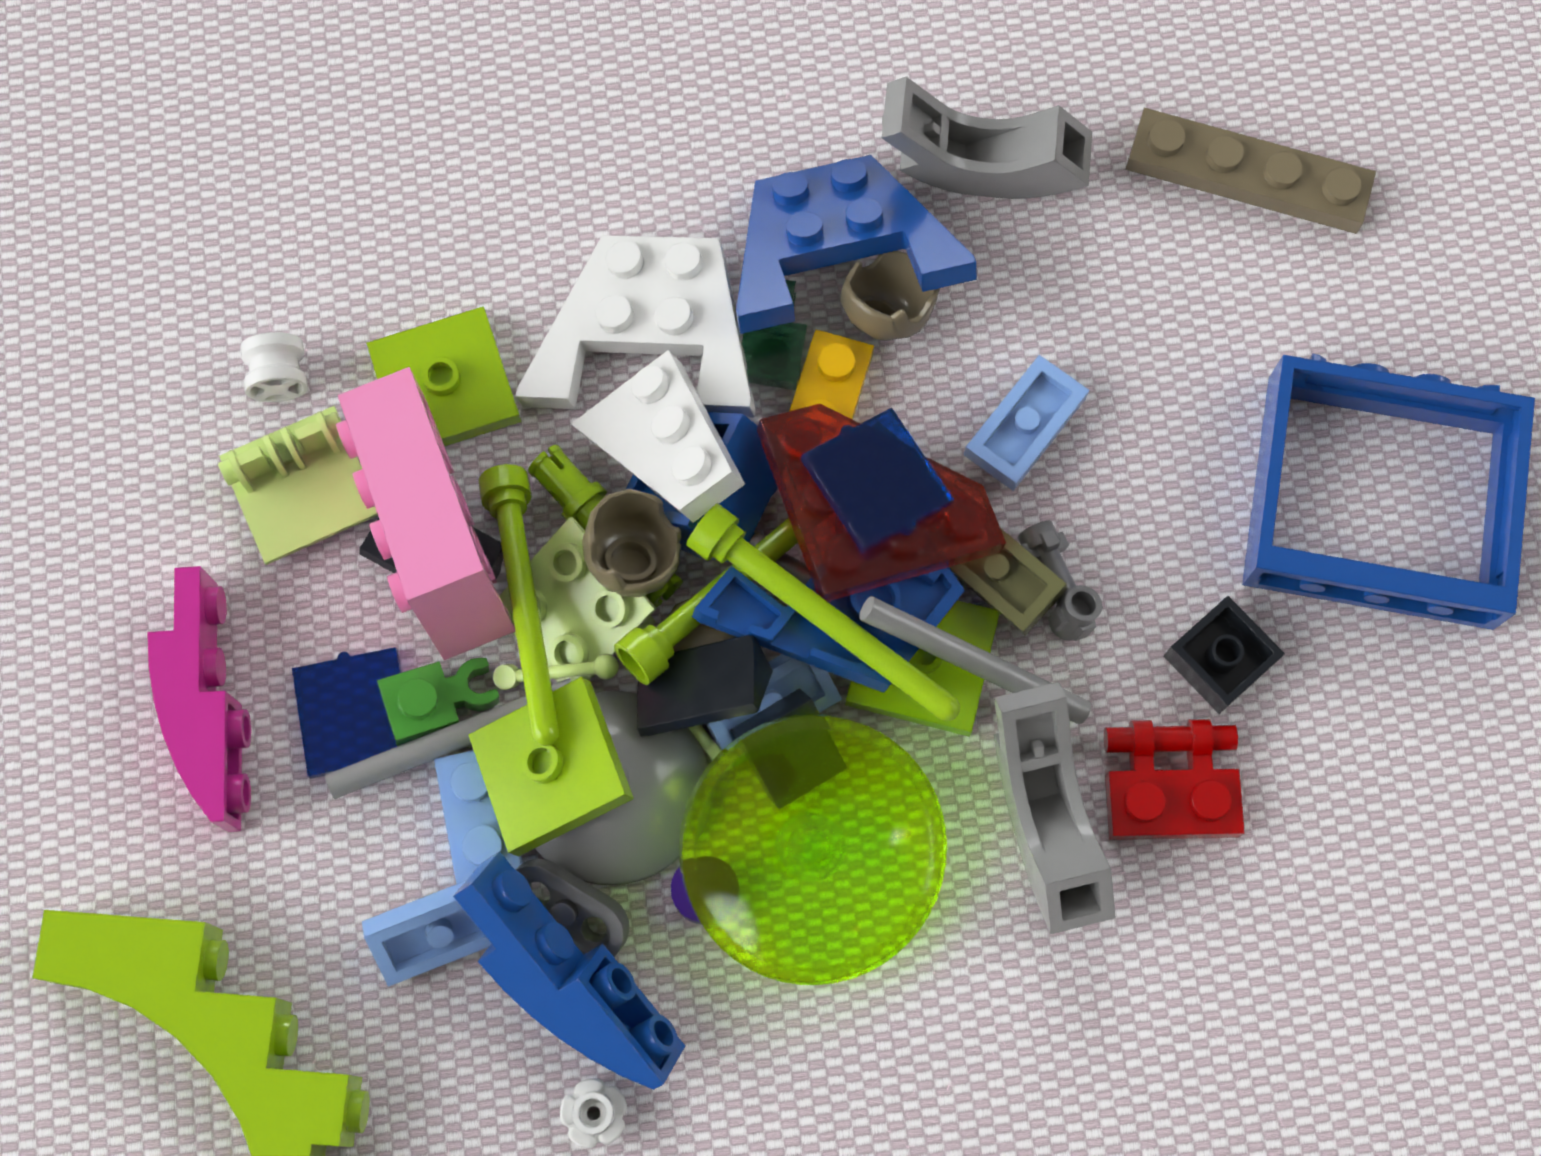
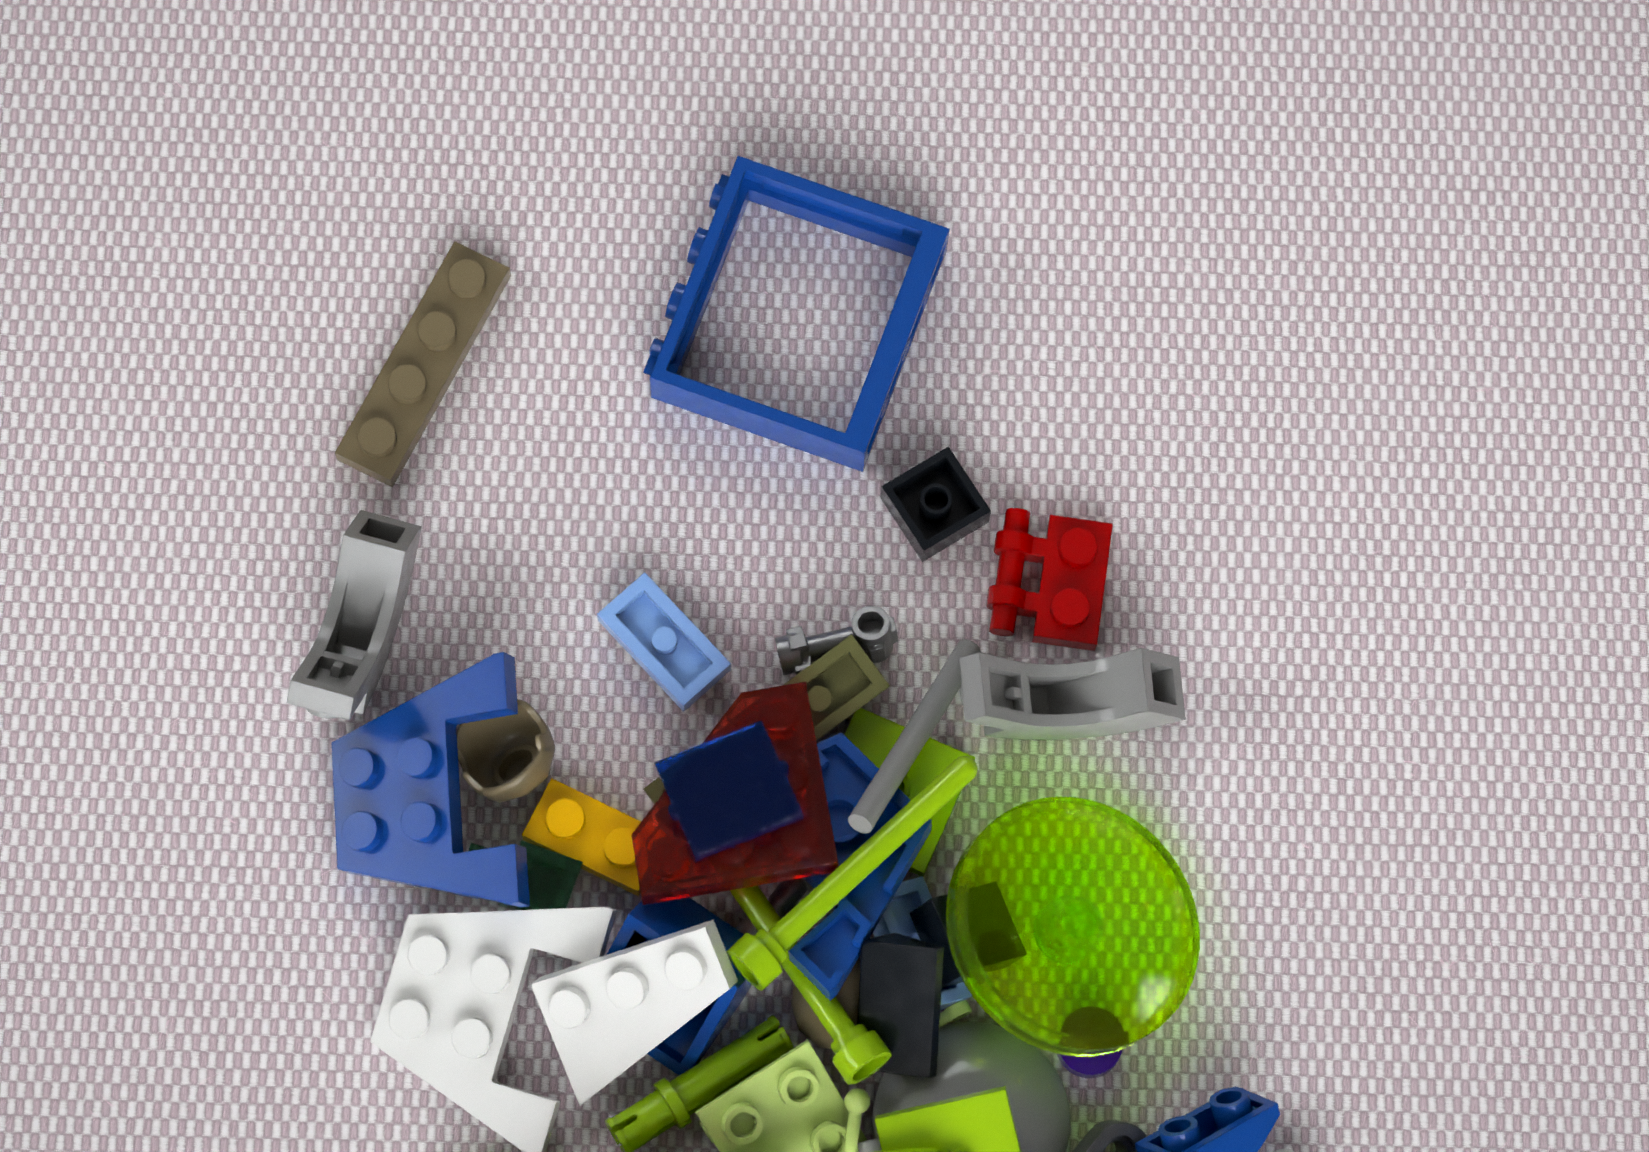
camera: 85 degrees left, 0 degrees up
(631, 544) = (749, 1047): dark tan hair -> none

